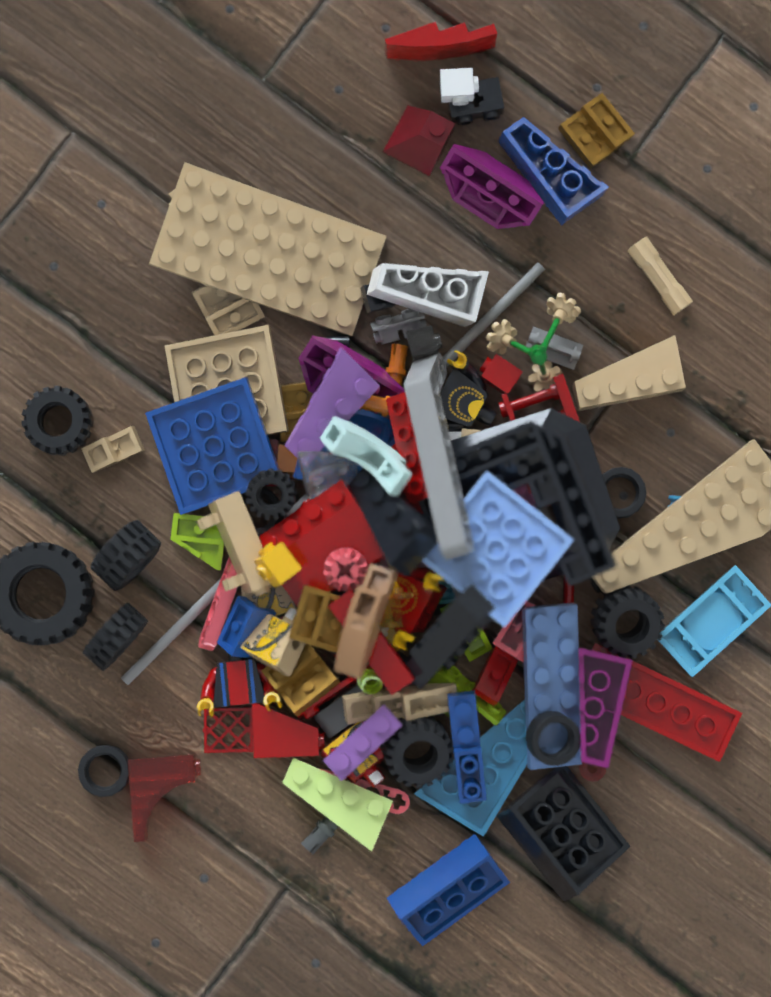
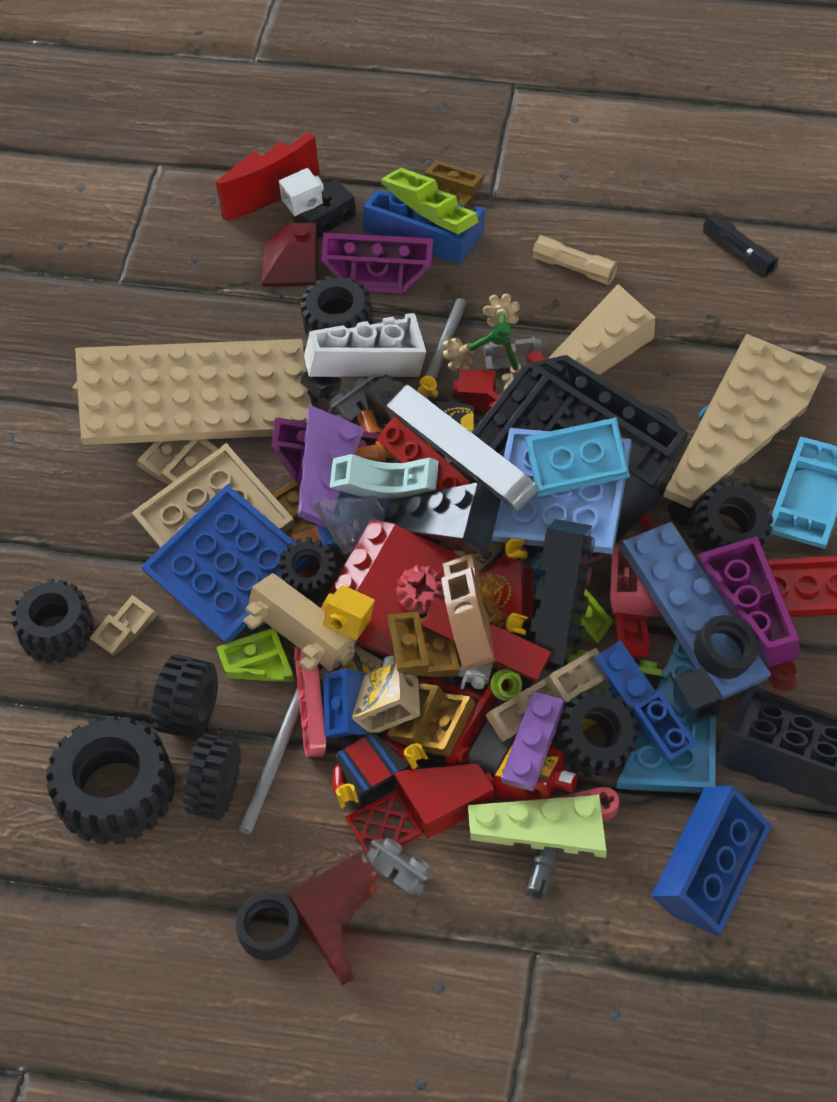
camera: 25 degrees left, 30 degrees down
(228, 783) = (411, 870): none -> light grey hinge
(434, 207) = (335, 296): none -> black tyre
(508, 762) = (696, 695): none -> black brick
(521, 535) = (577, 457): none -> medium azure tile
(561, 160) = (424, 197): none -> lime slope

